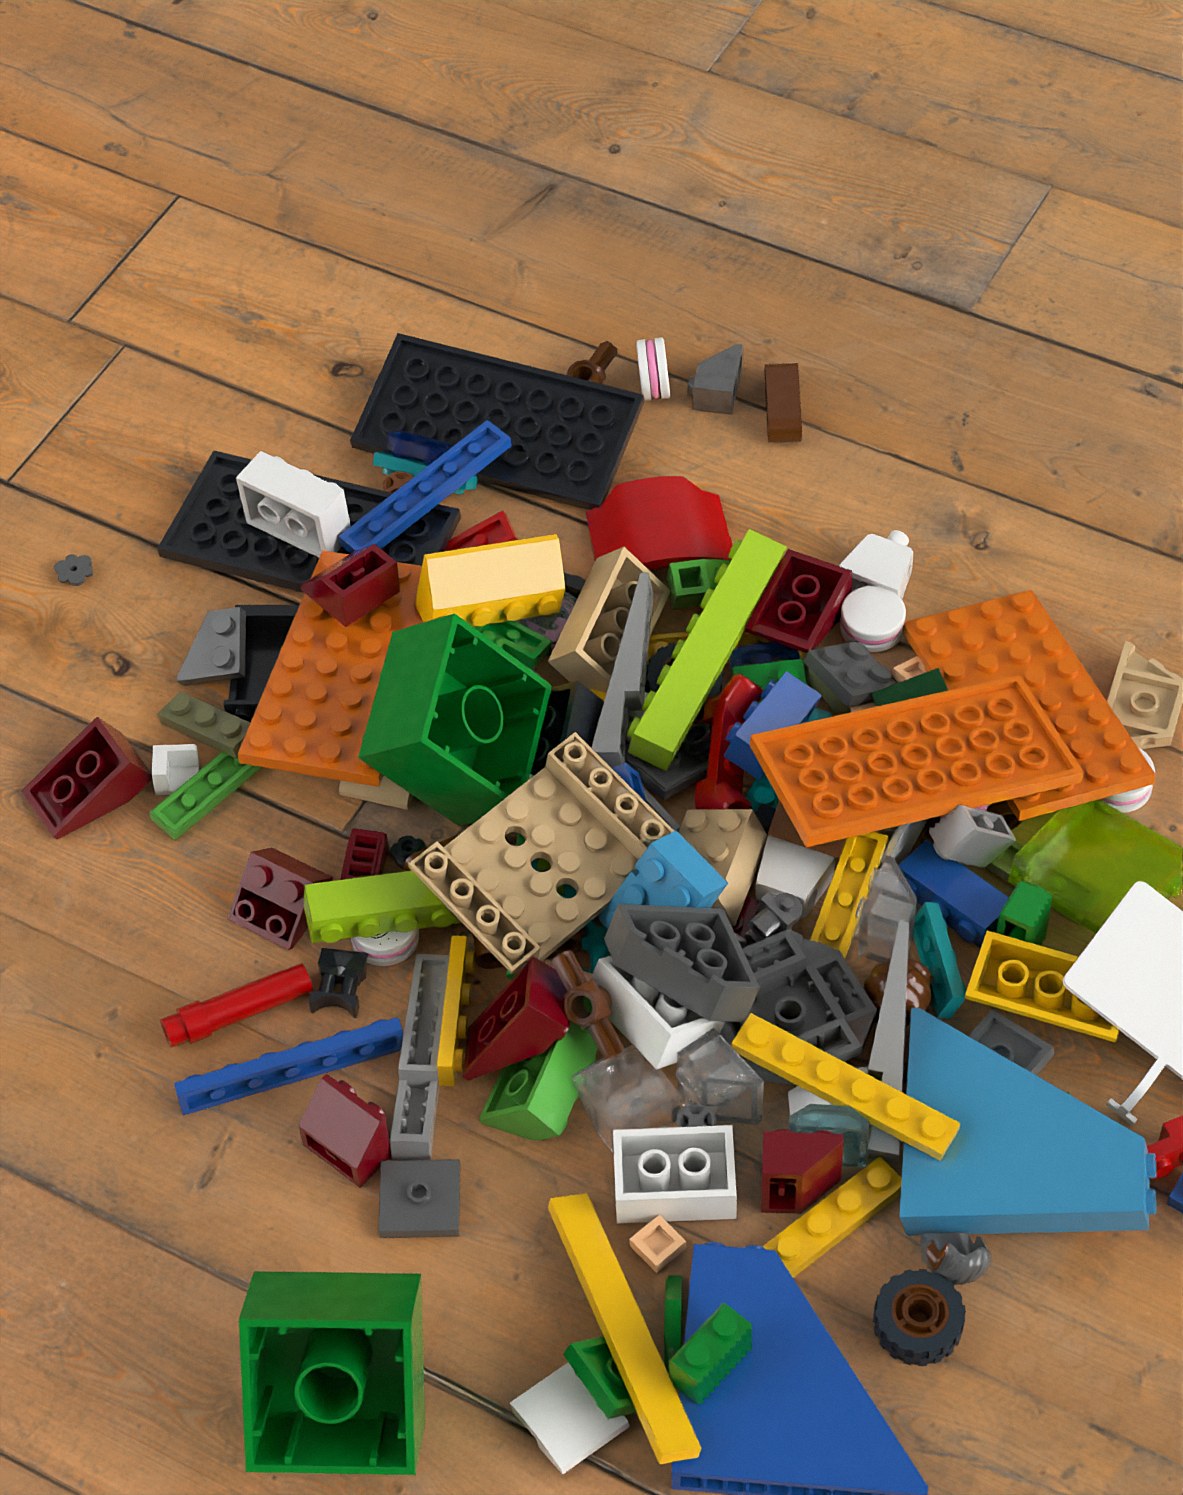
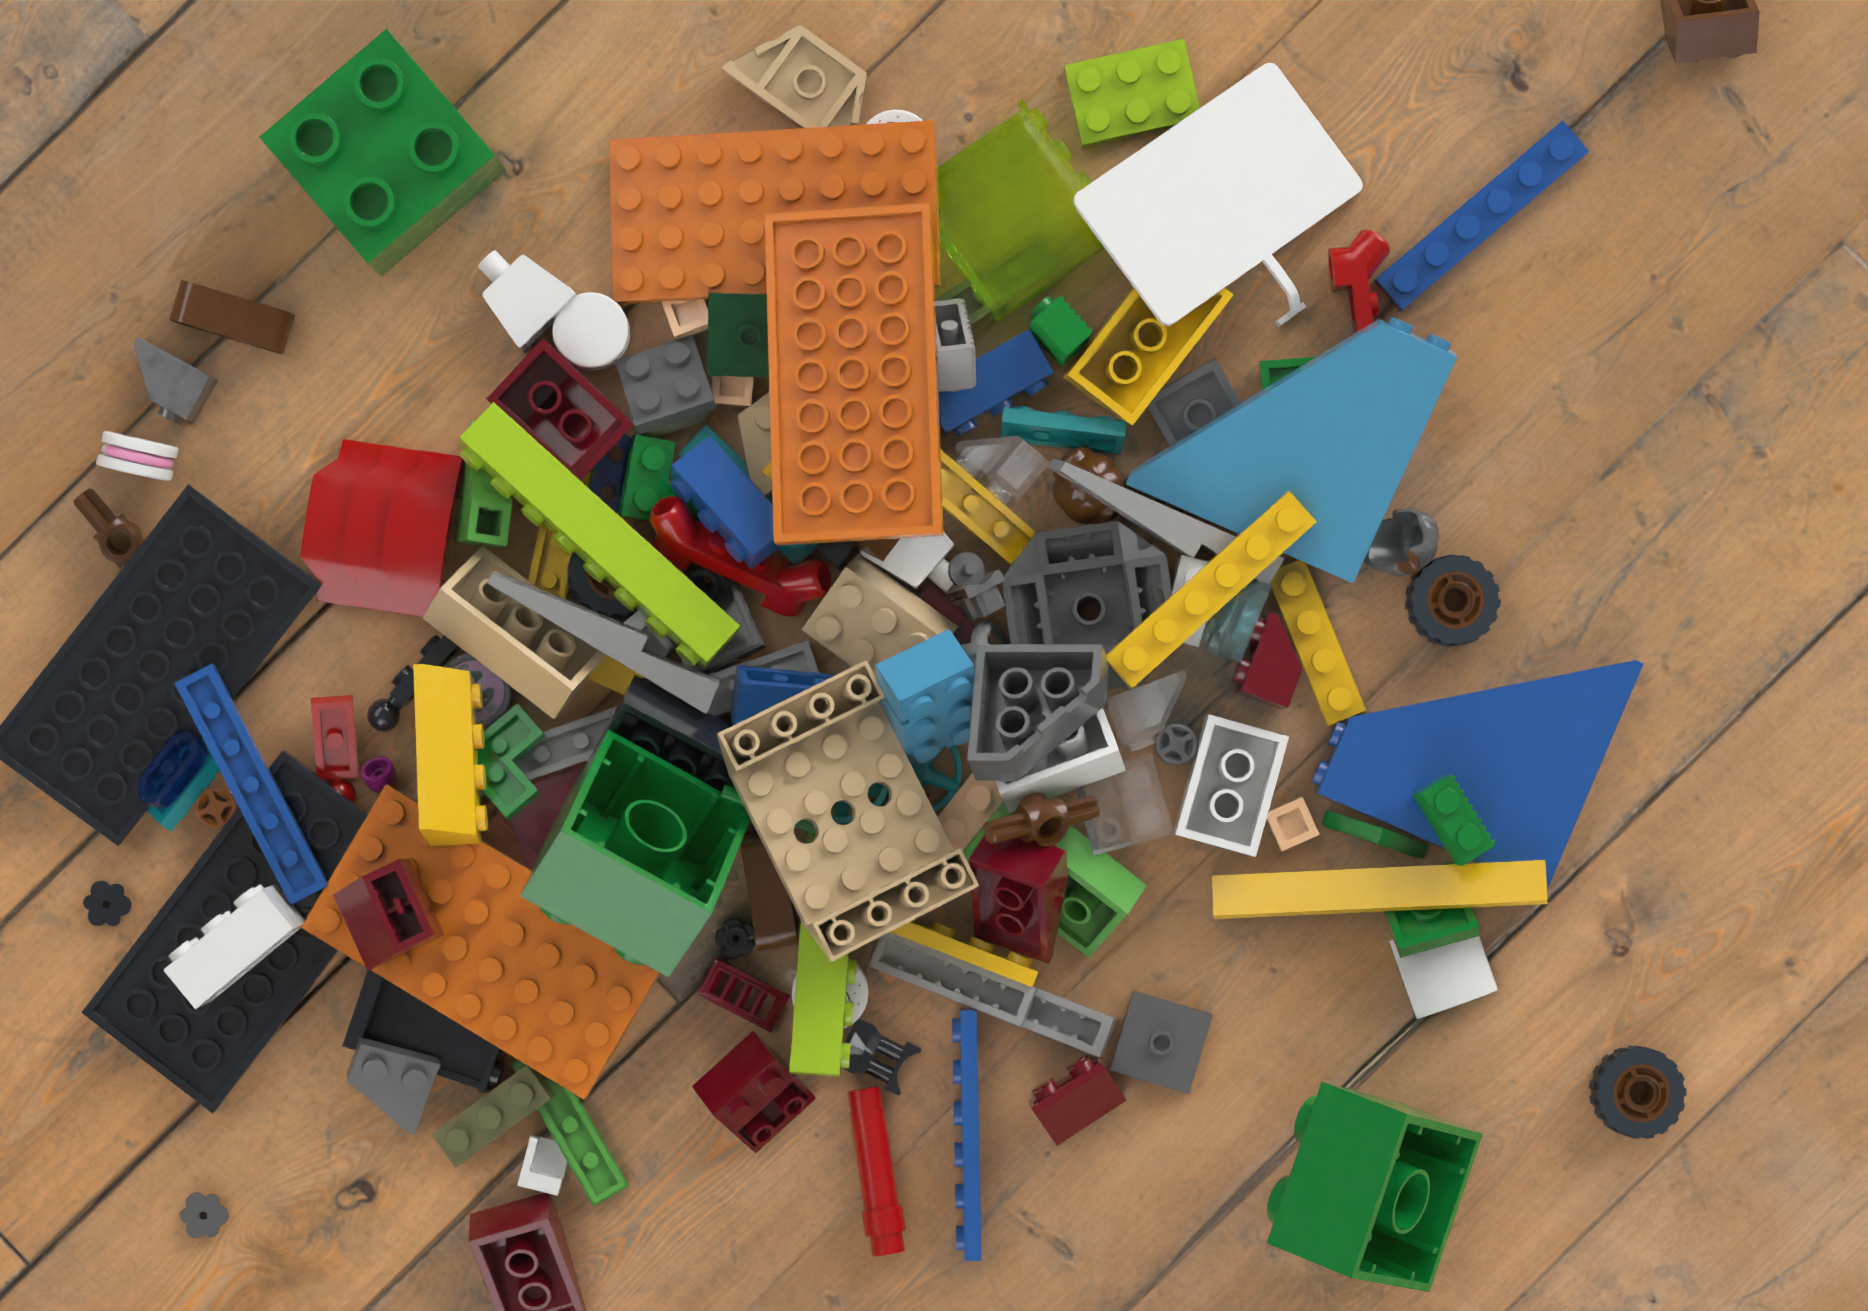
camera: 80 degrees left, 35 degrees up
(303, 450) = (95, 903): none -> black plant
(949, 443) = (383, 153): none -> green brick

